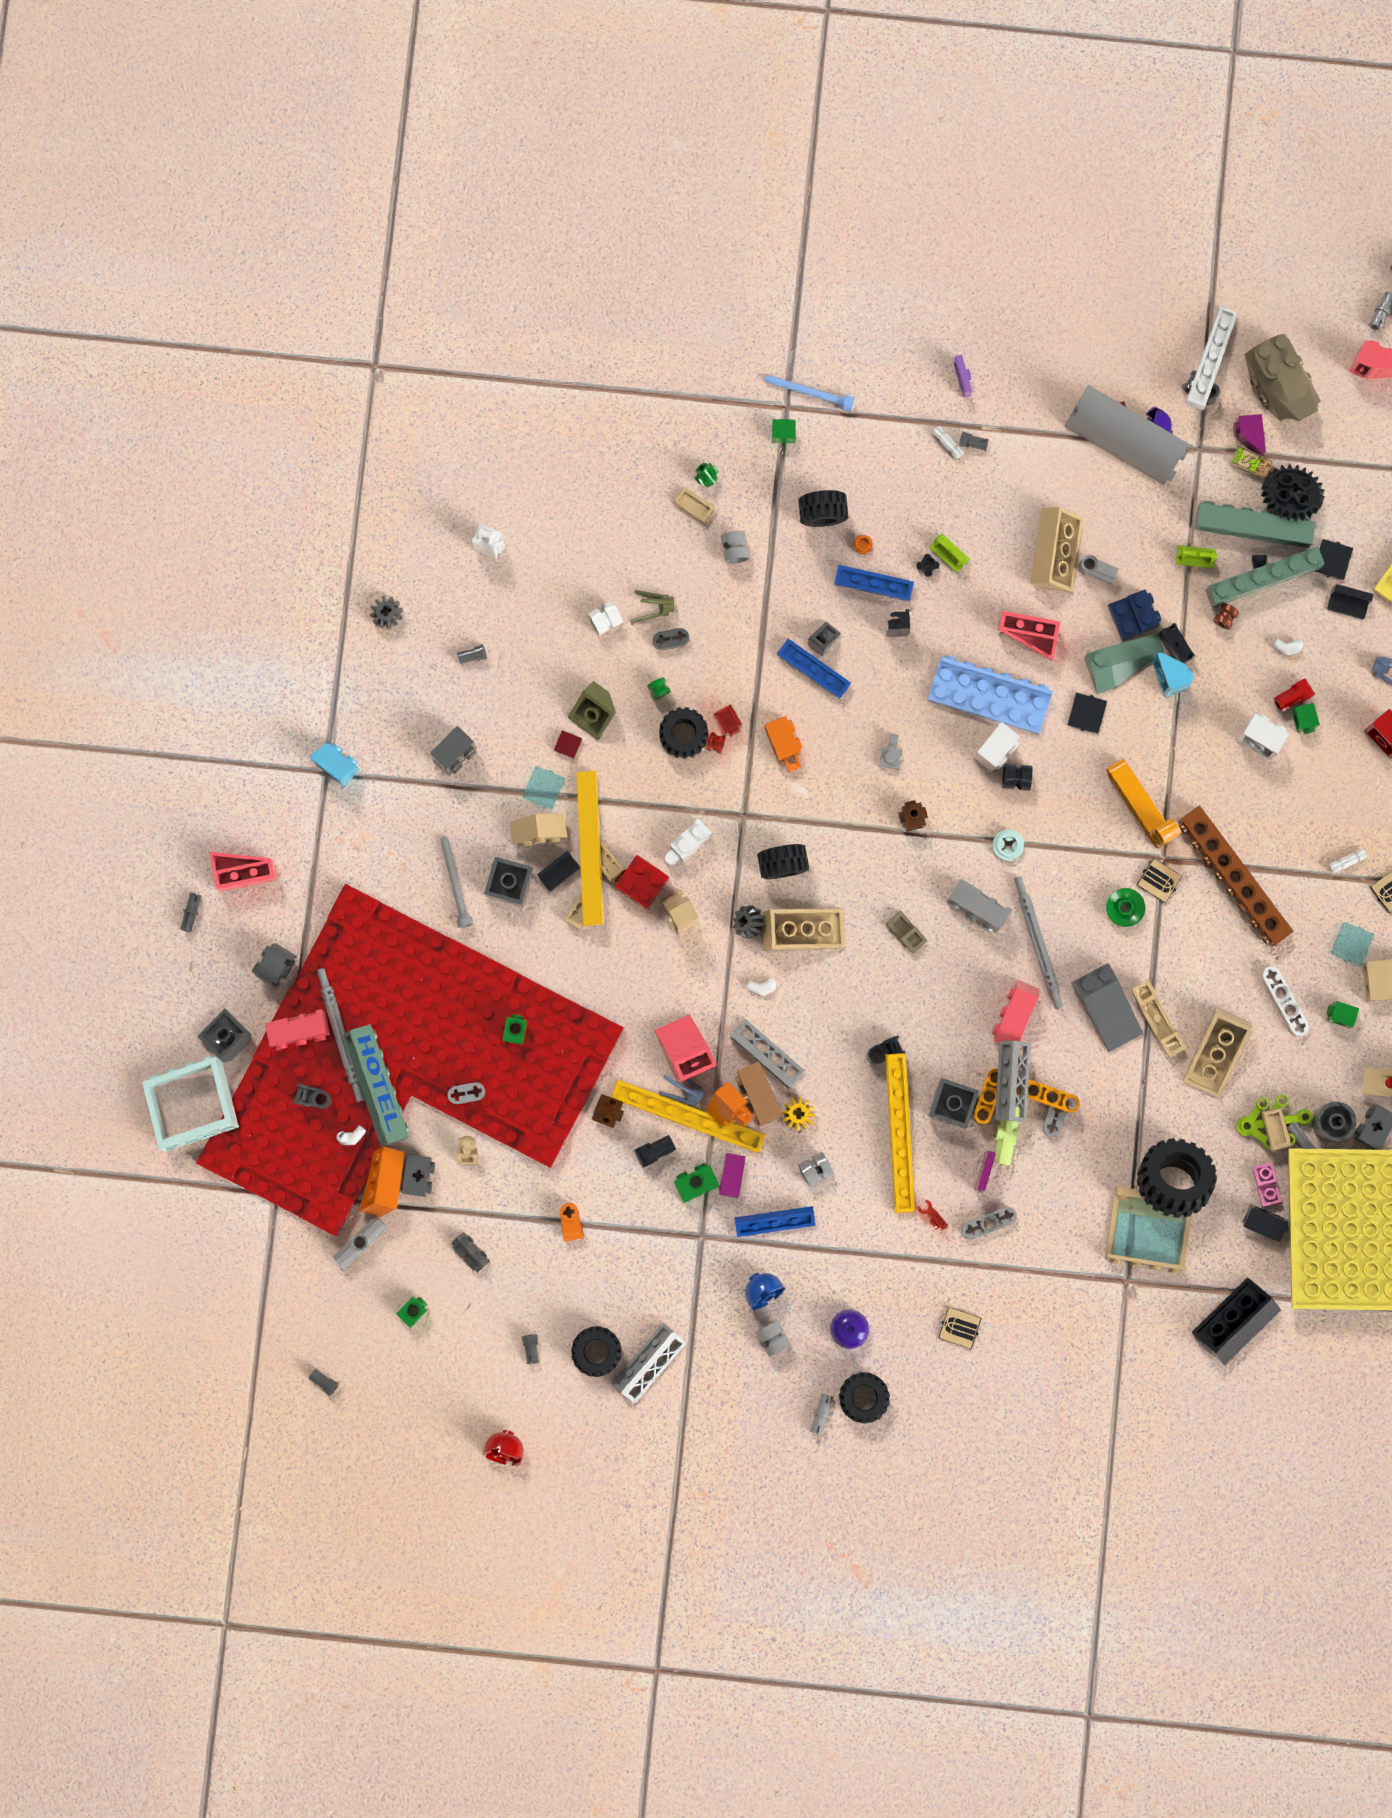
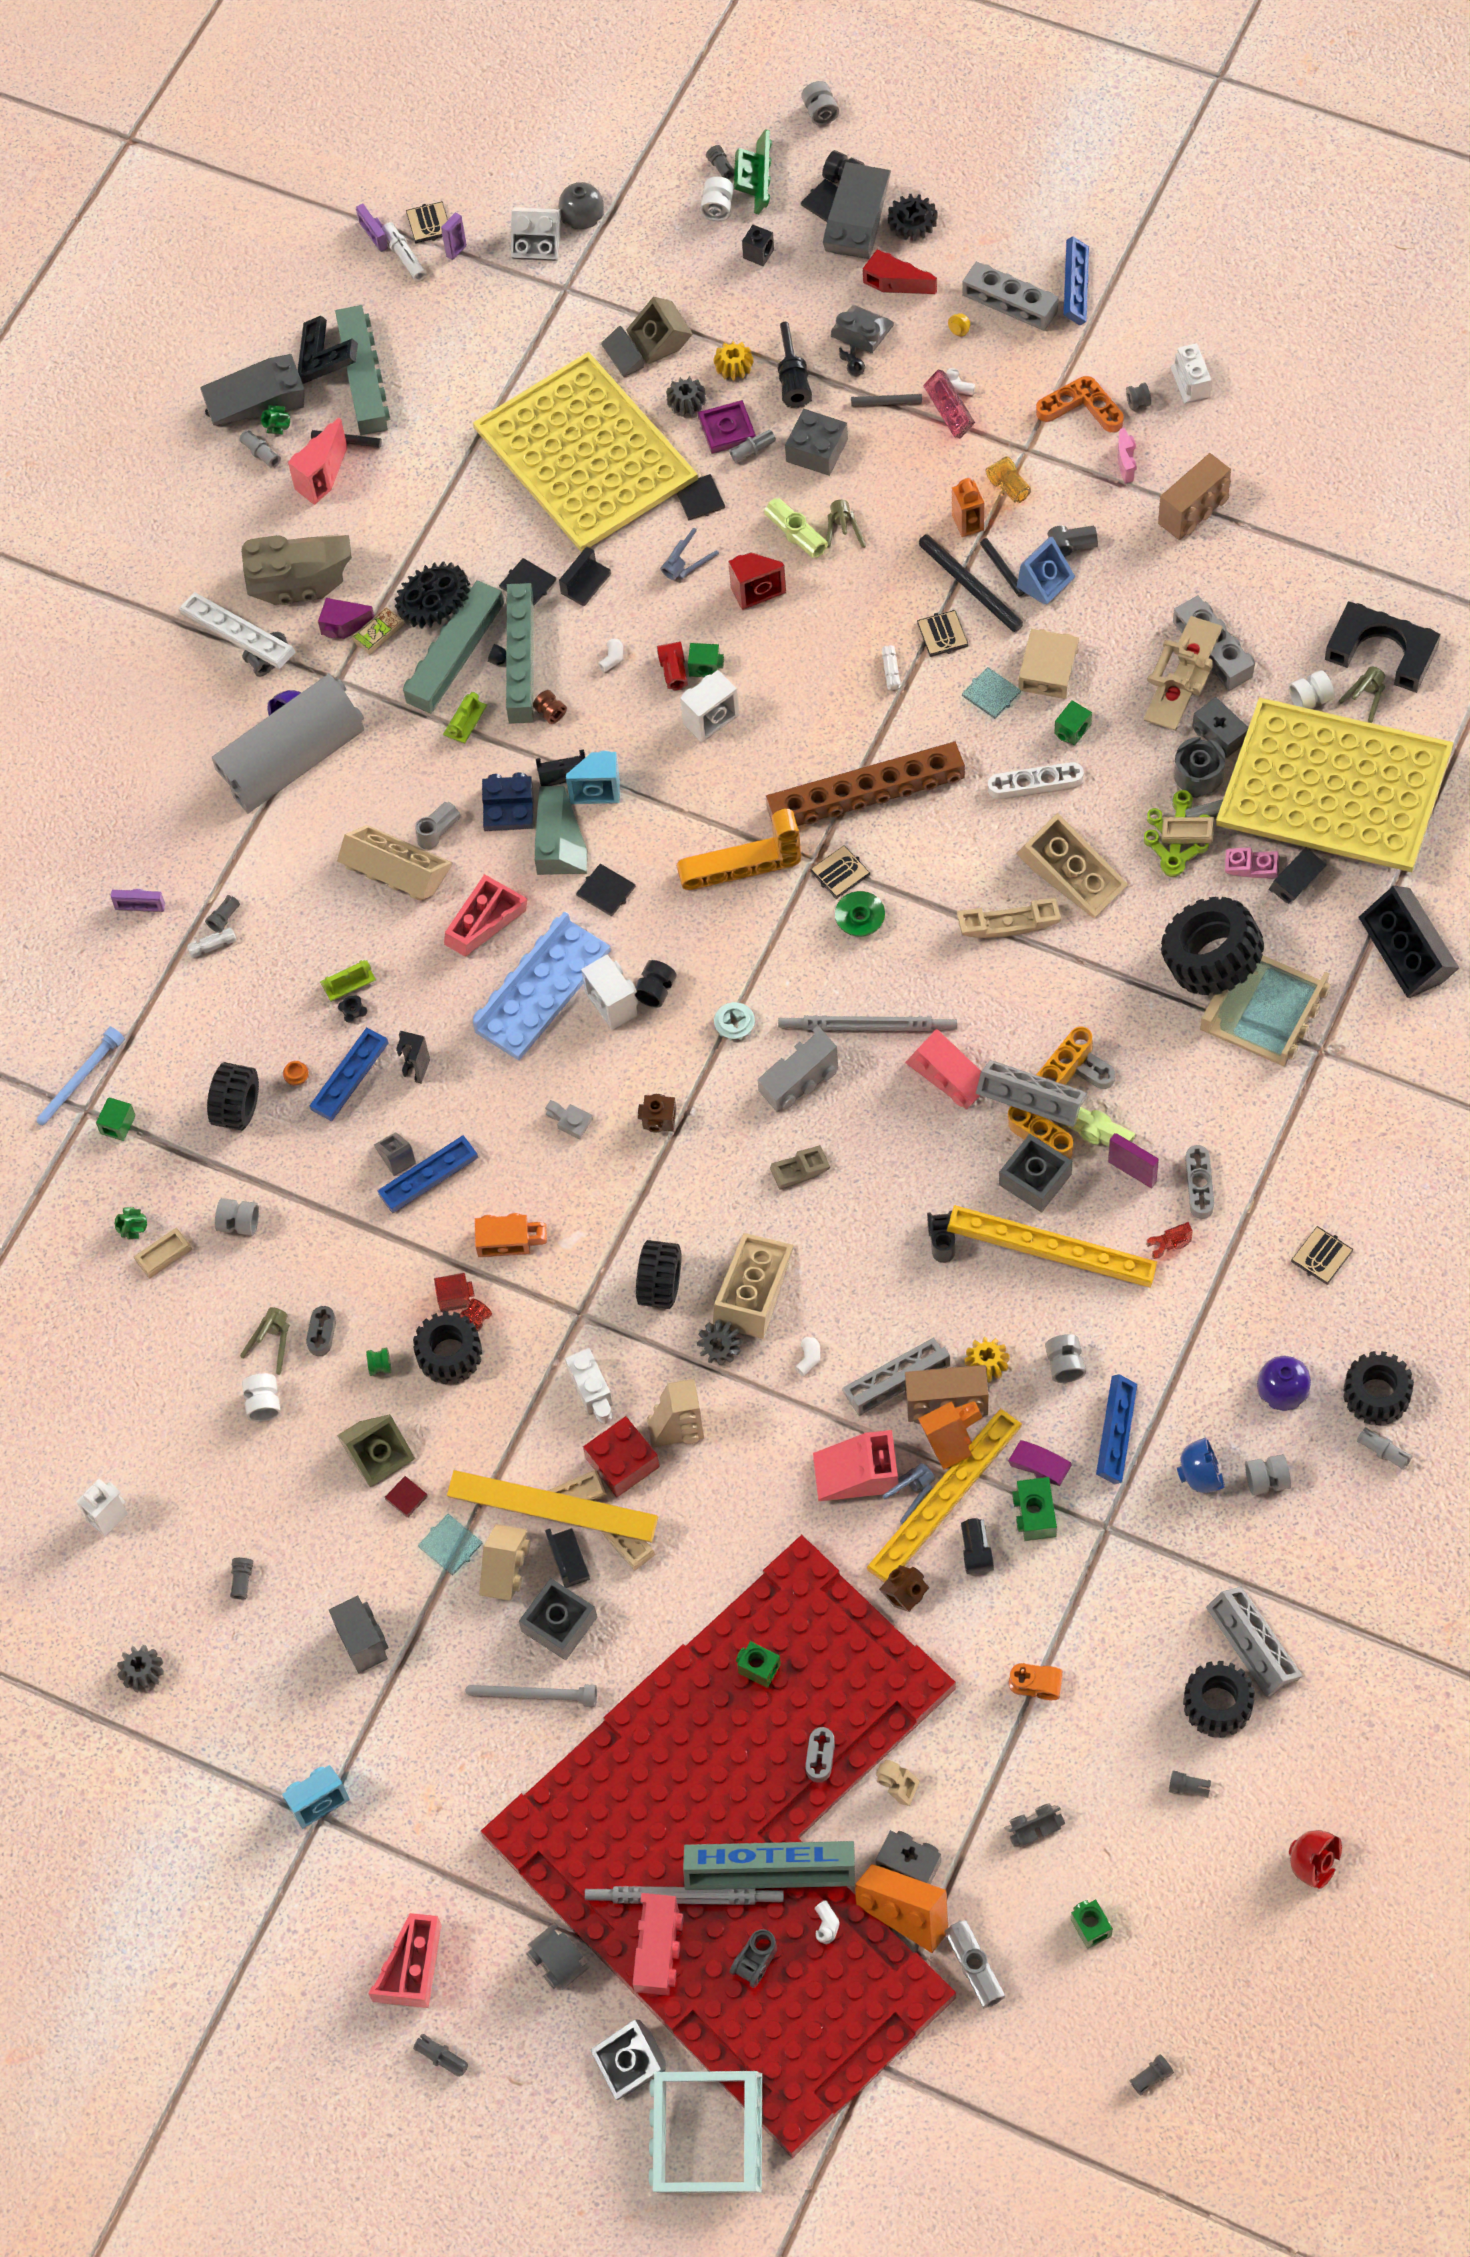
camera: 65 degrees left, 20 degrees down
(1107, 1007) = (973, 969): dark grey slope -> none

